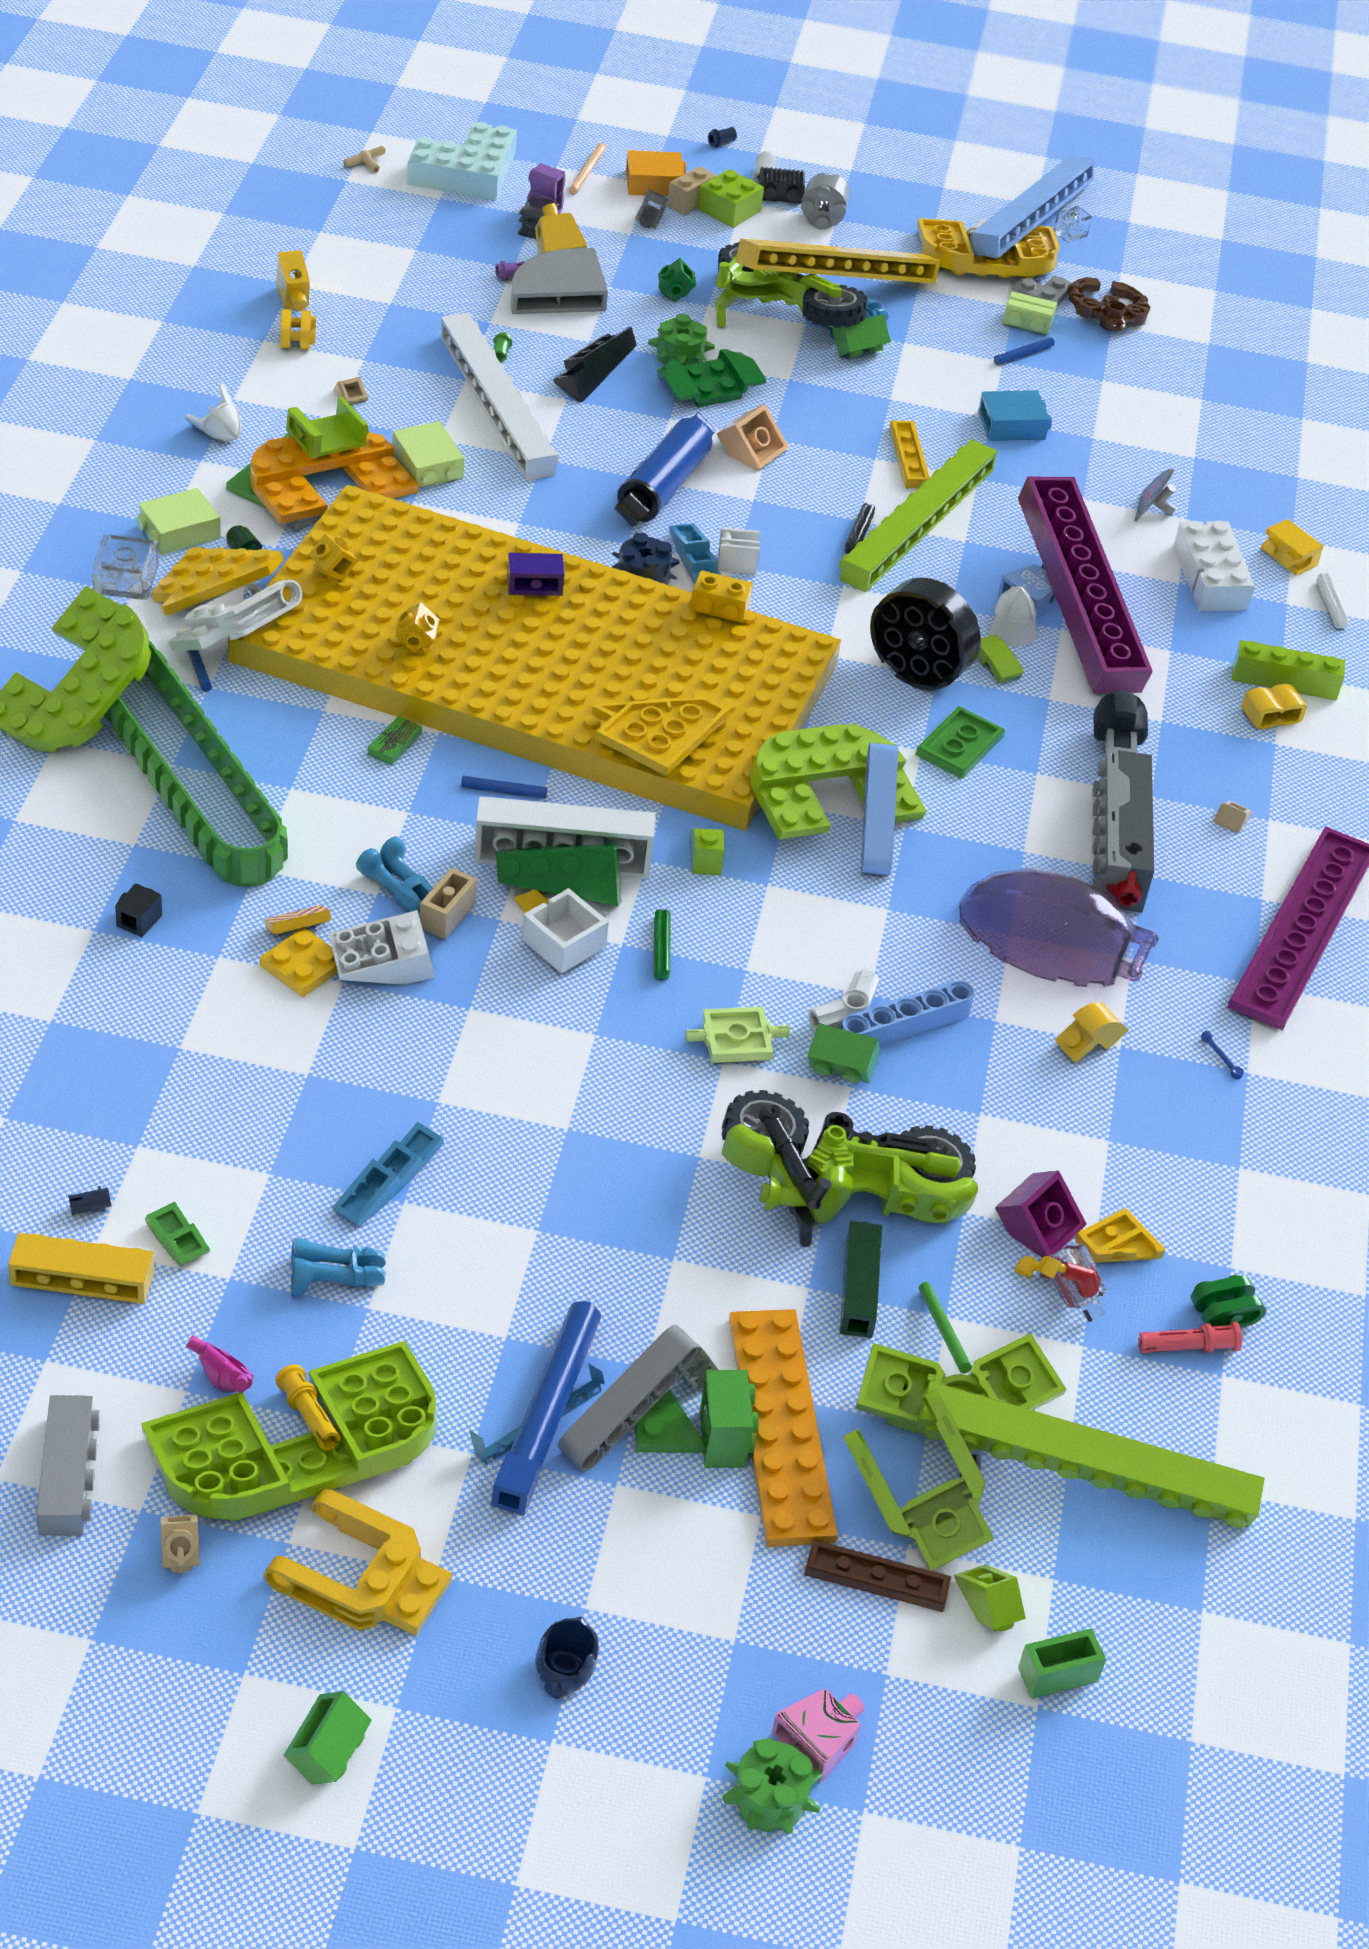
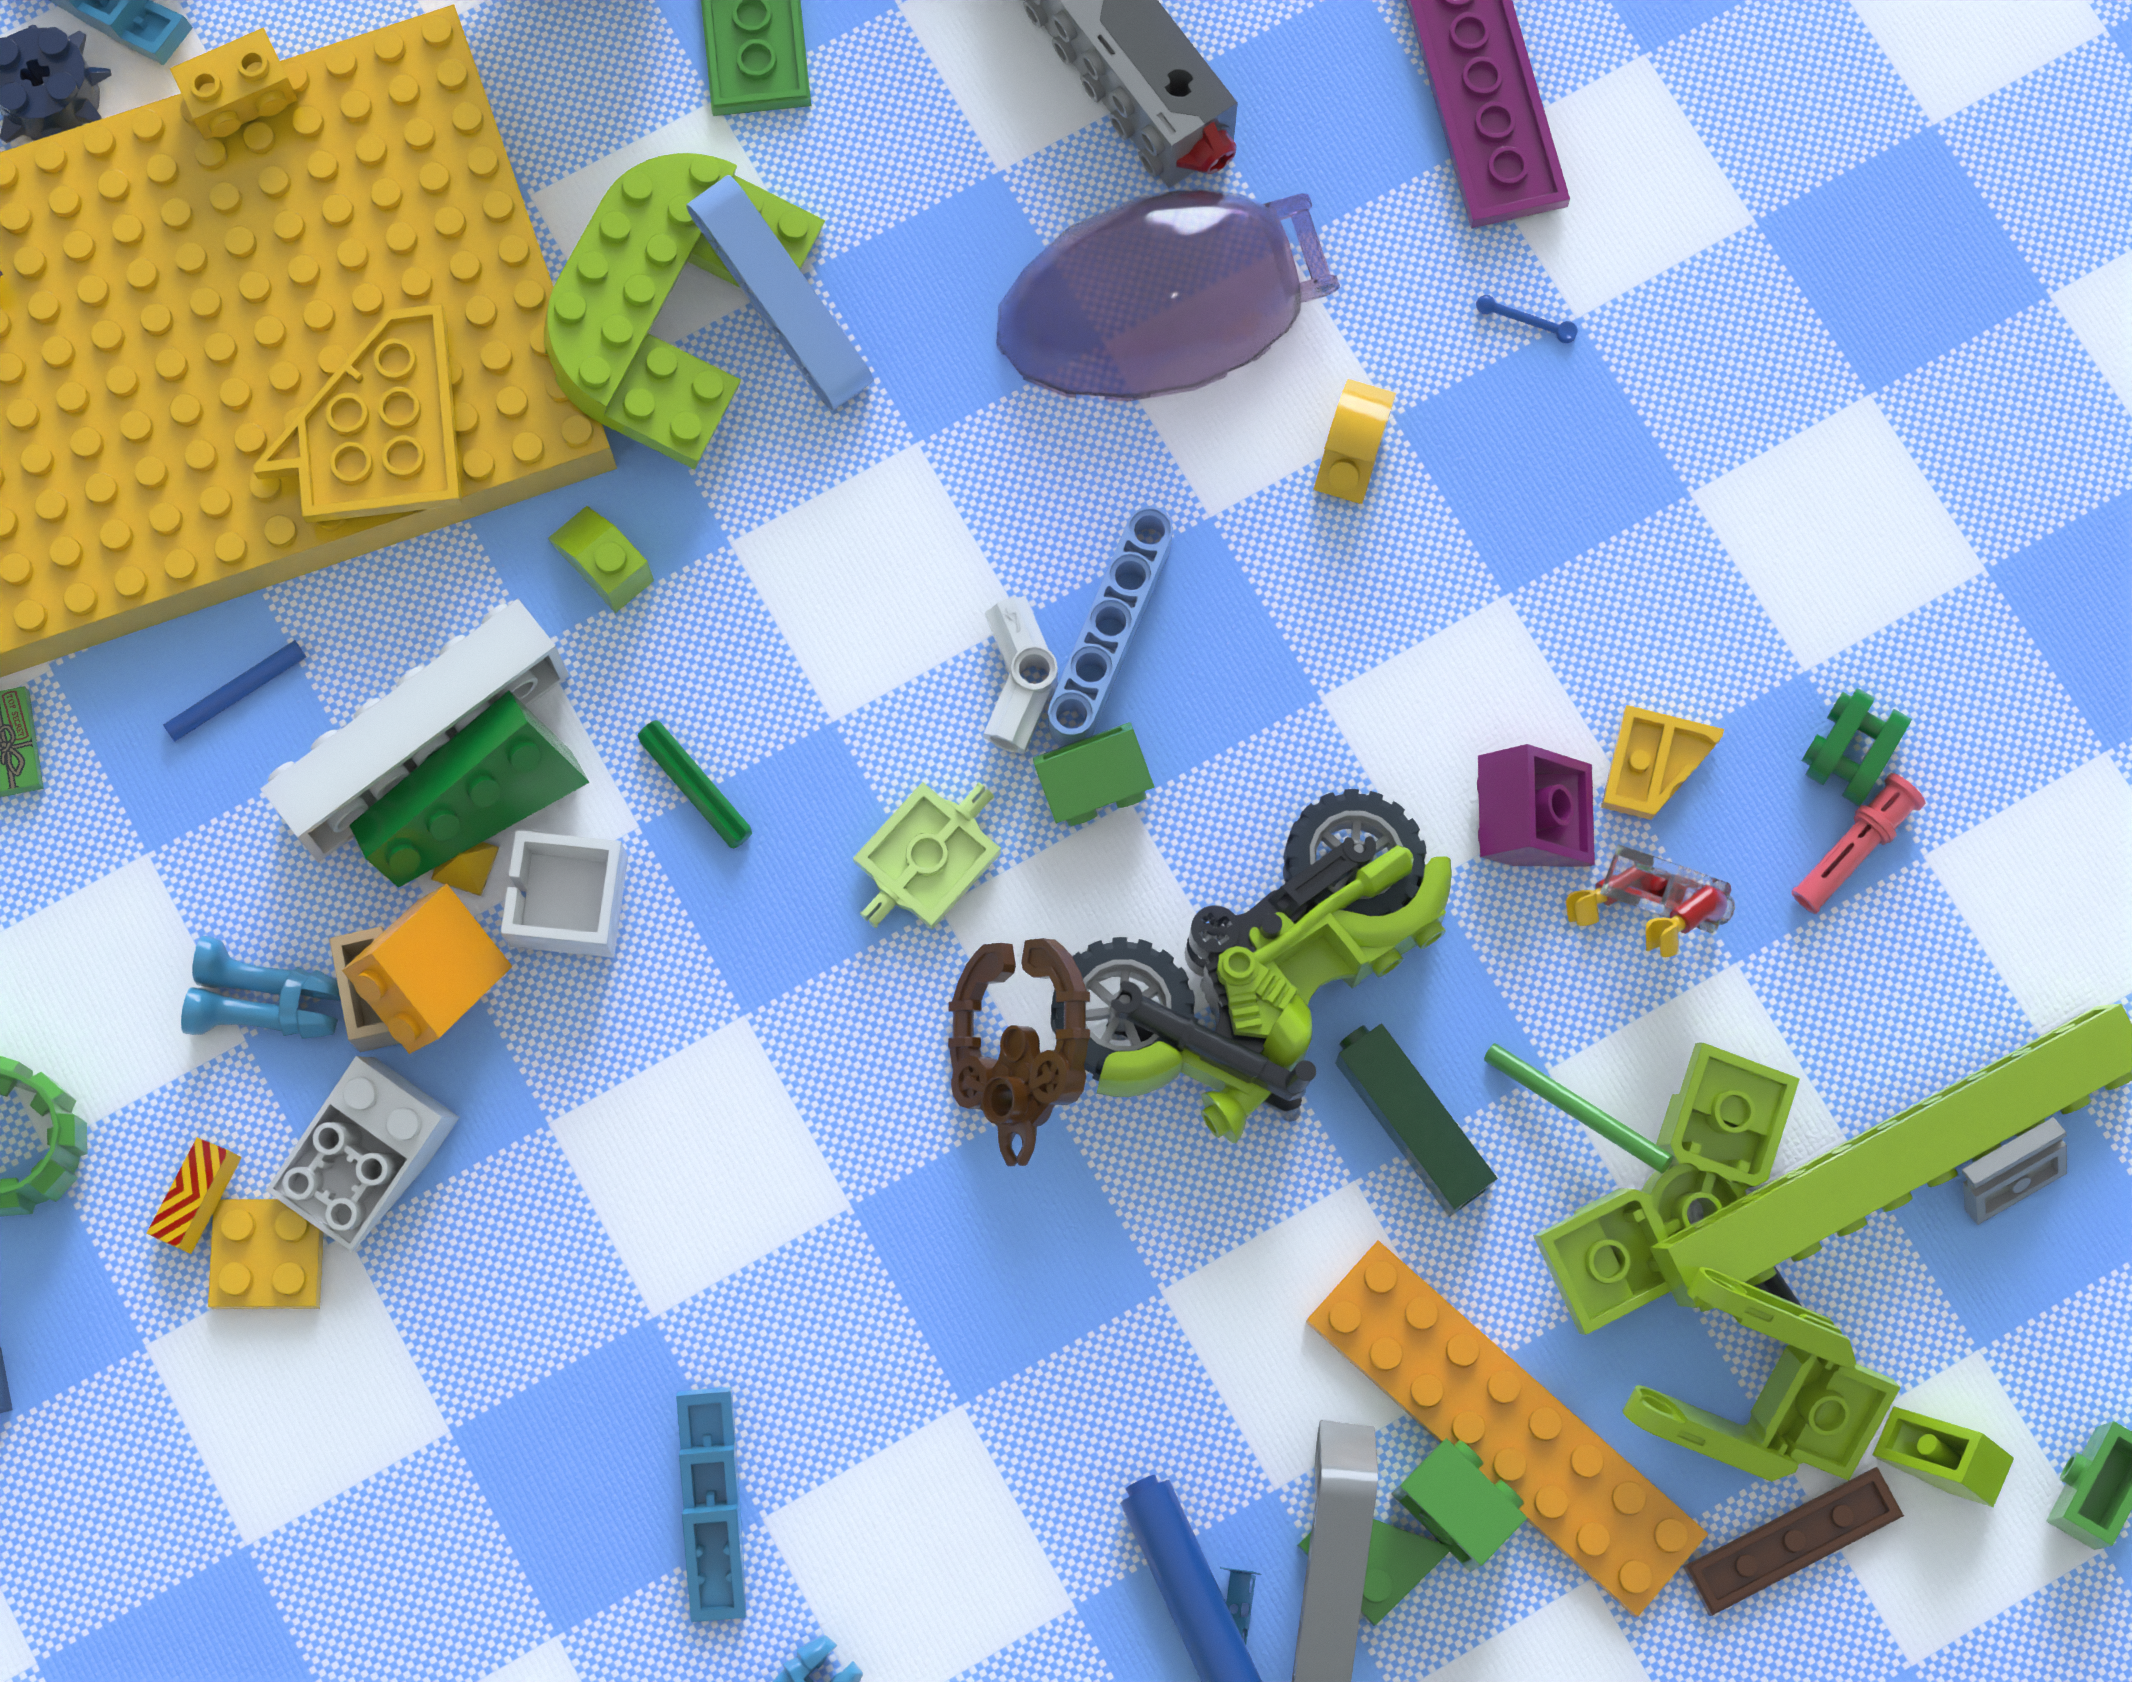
camera: 35 degrees left, 30 degrees up
(479, 903) = (427, 969): none -> light orange brick
(686, 1126) = (1023, 1082): none -> reddish brown piece
(1143, 1510) = (2015, 1171): none -> light grey plate

